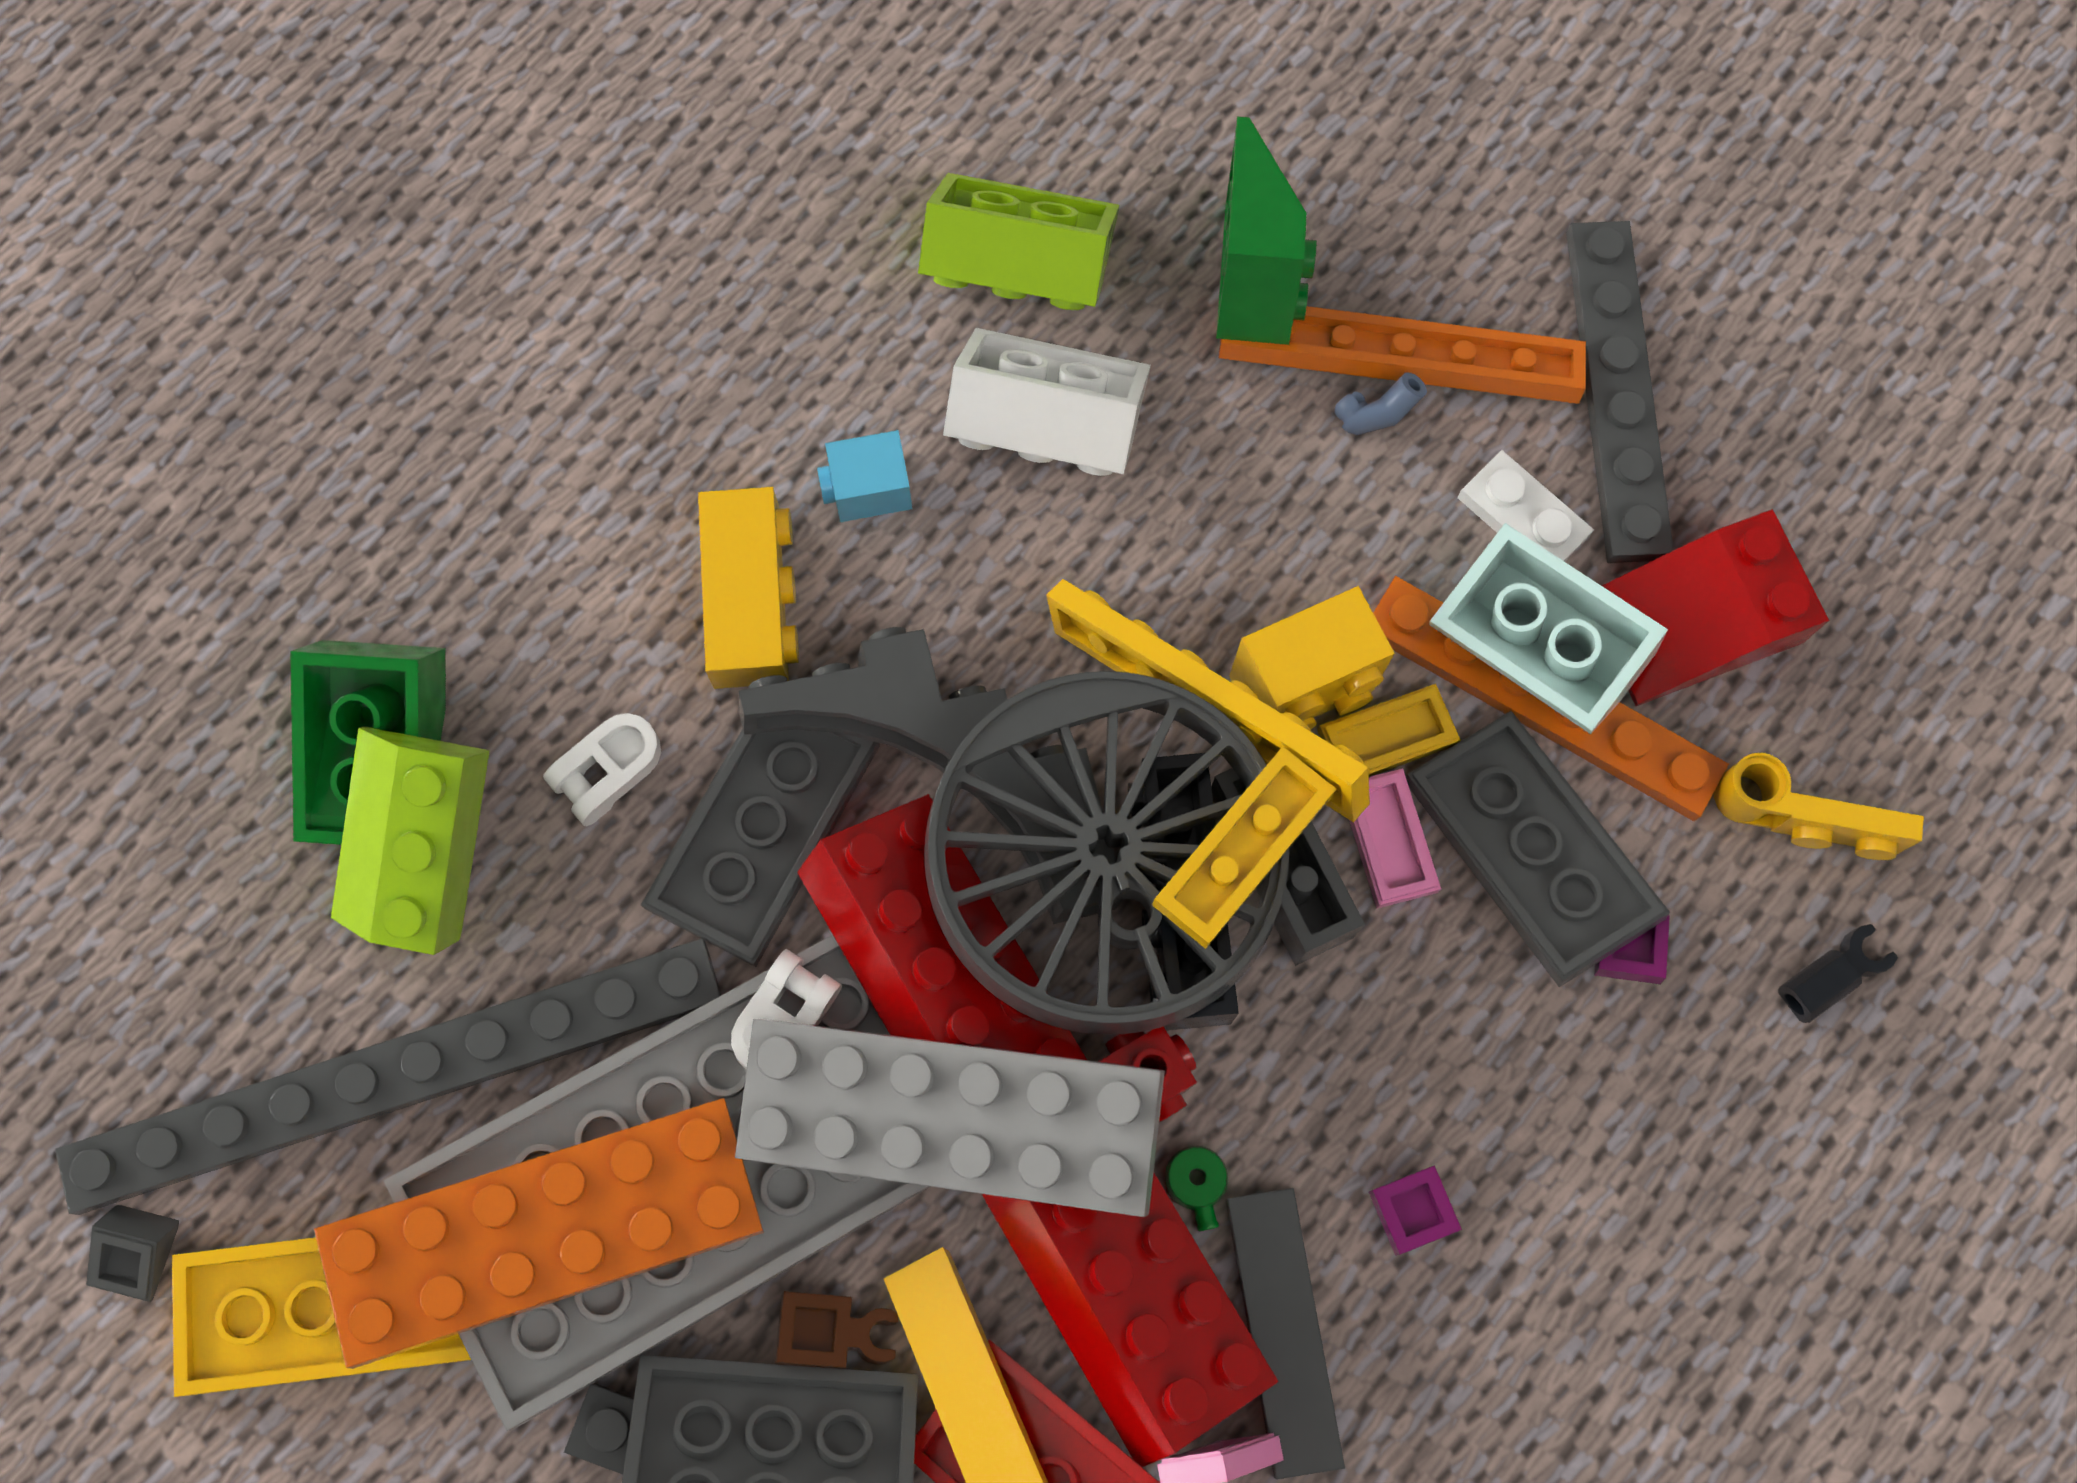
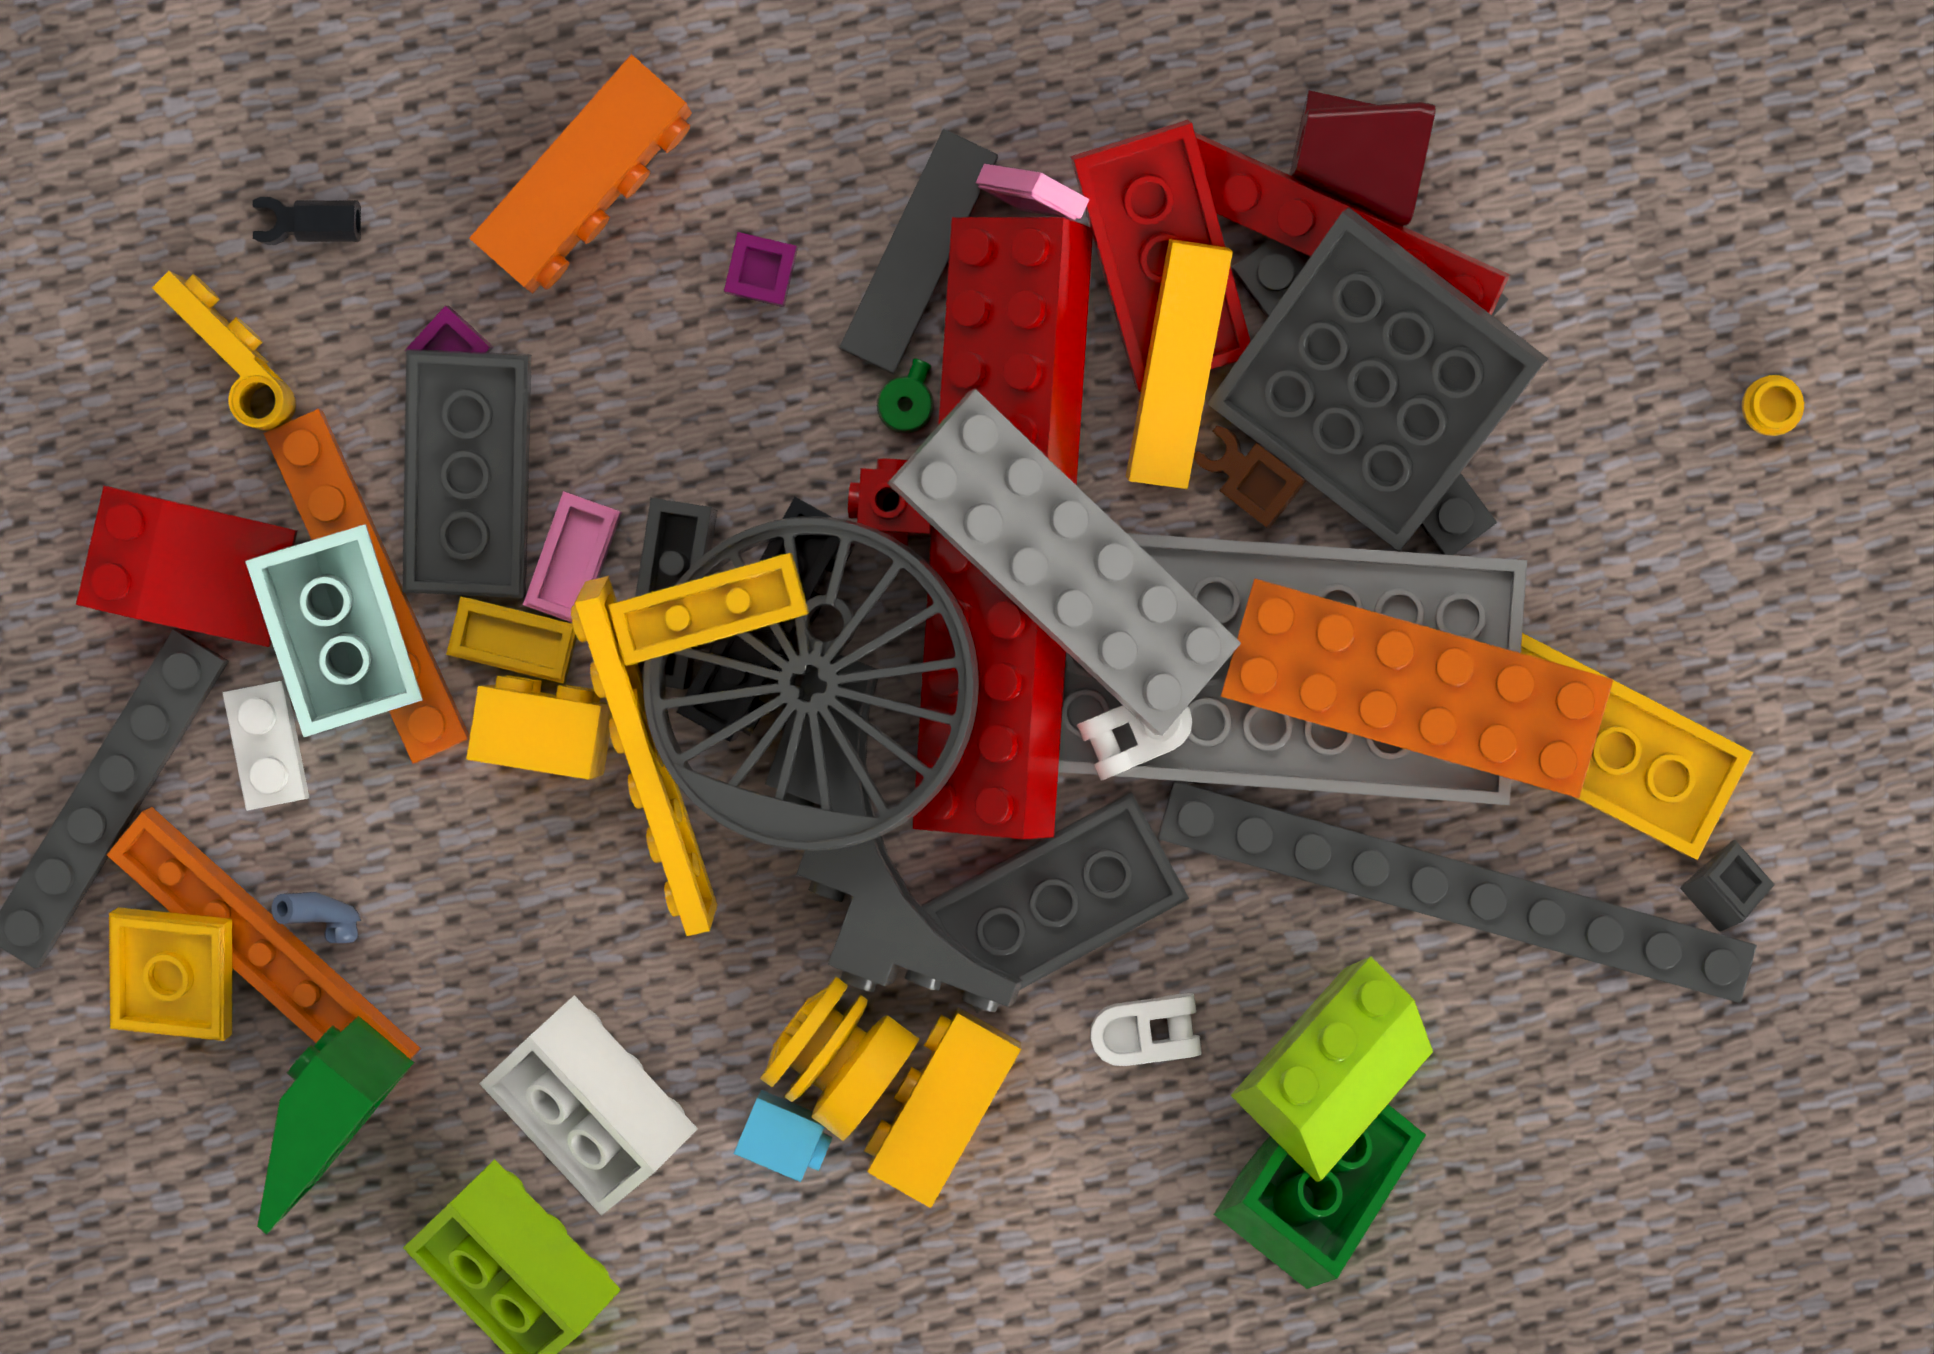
camera: 145 degrees left, 15 degrees up
(860, 562) = (839, 1058): none -> yellow wheel
(1462, 285) = (170, 973): none -> yellow tile
(1636, 1183) = (582, 176): none -> orange brick

